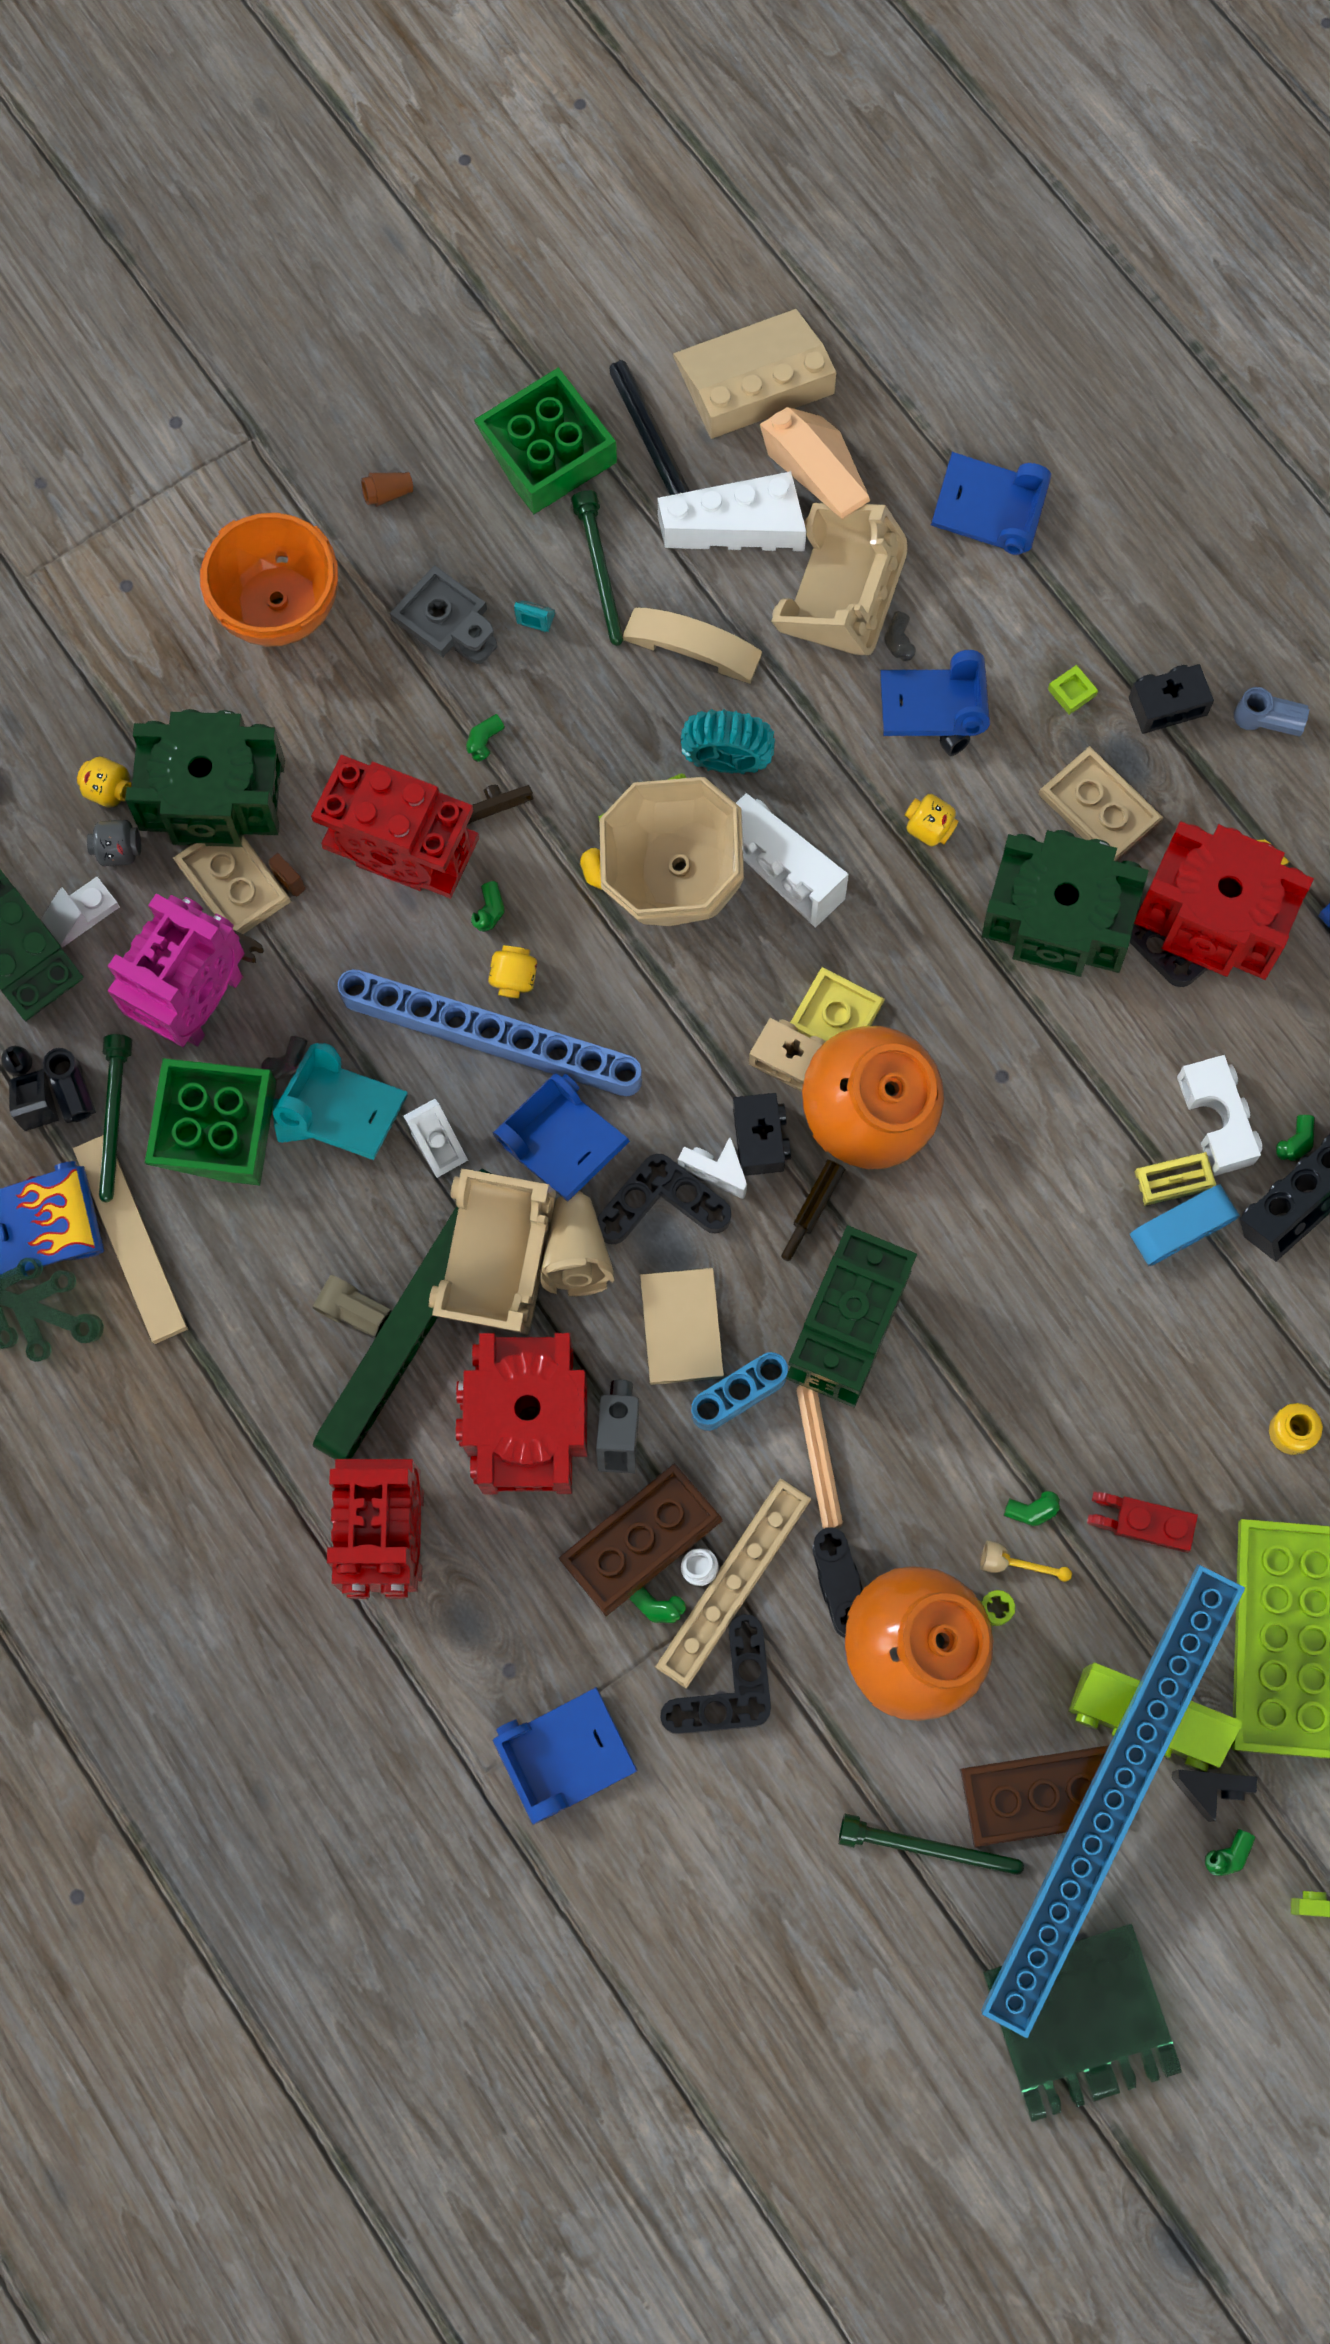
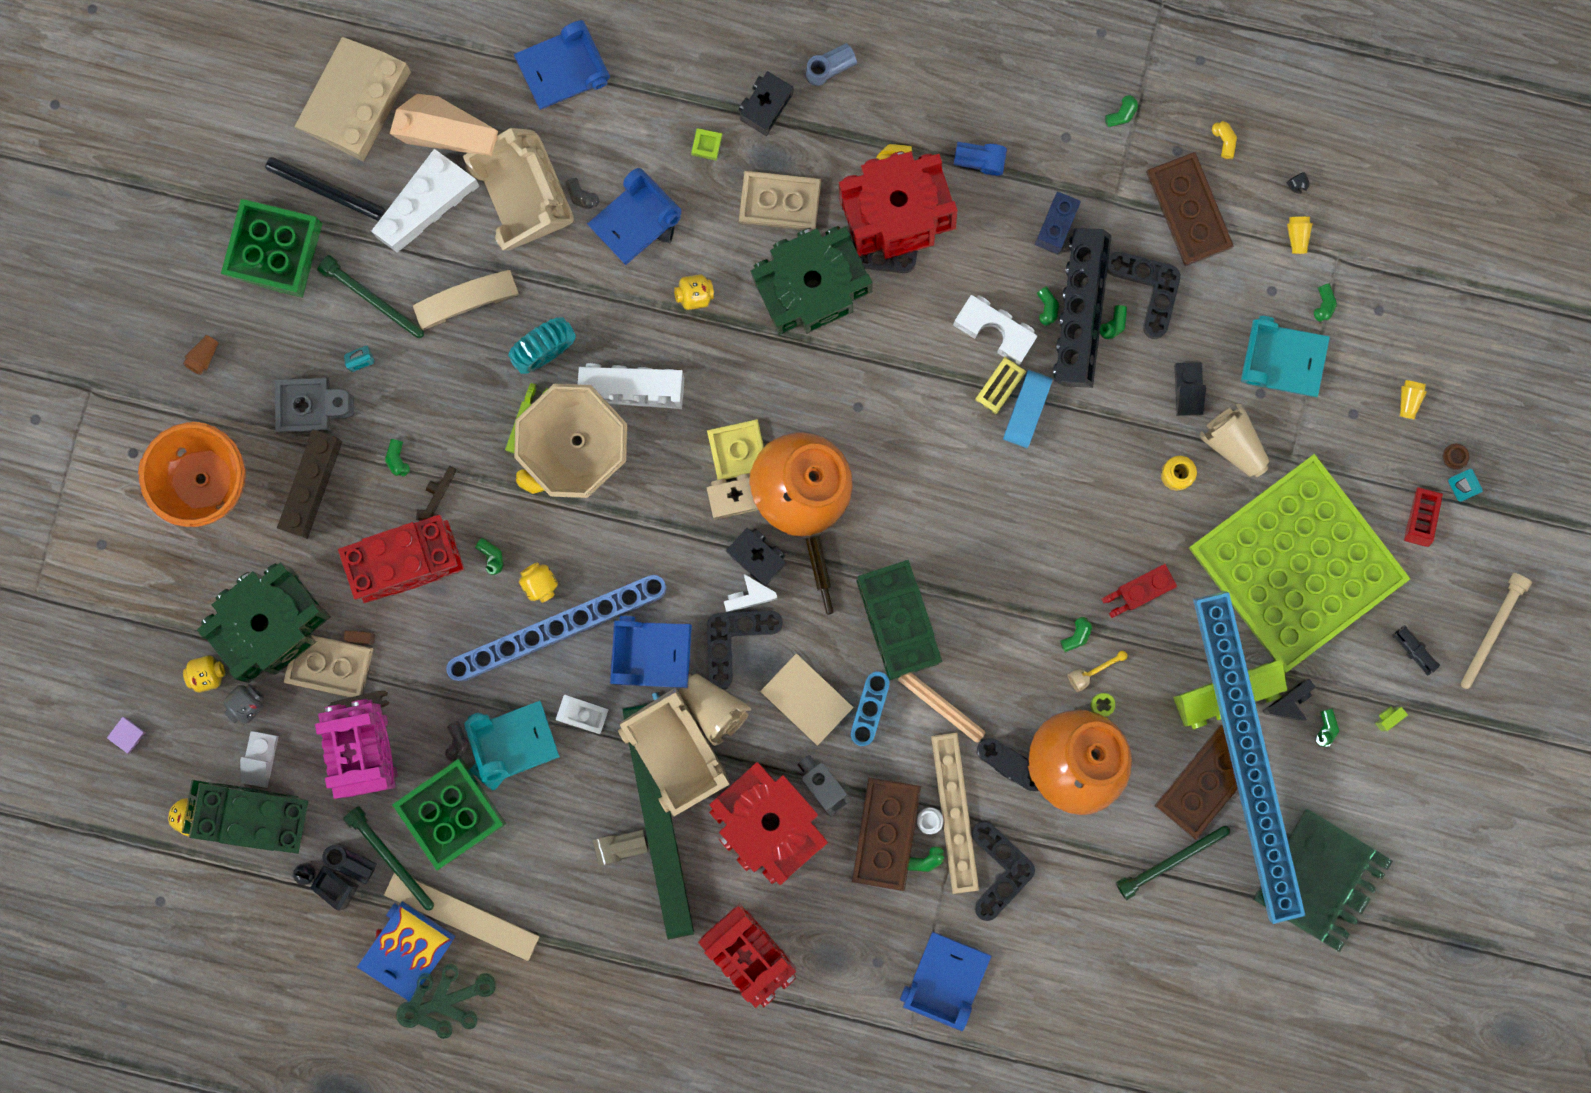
camera: 45 degrees left, 10 degrees up
(375, 689) = (309, 484): none -> dark brown brick

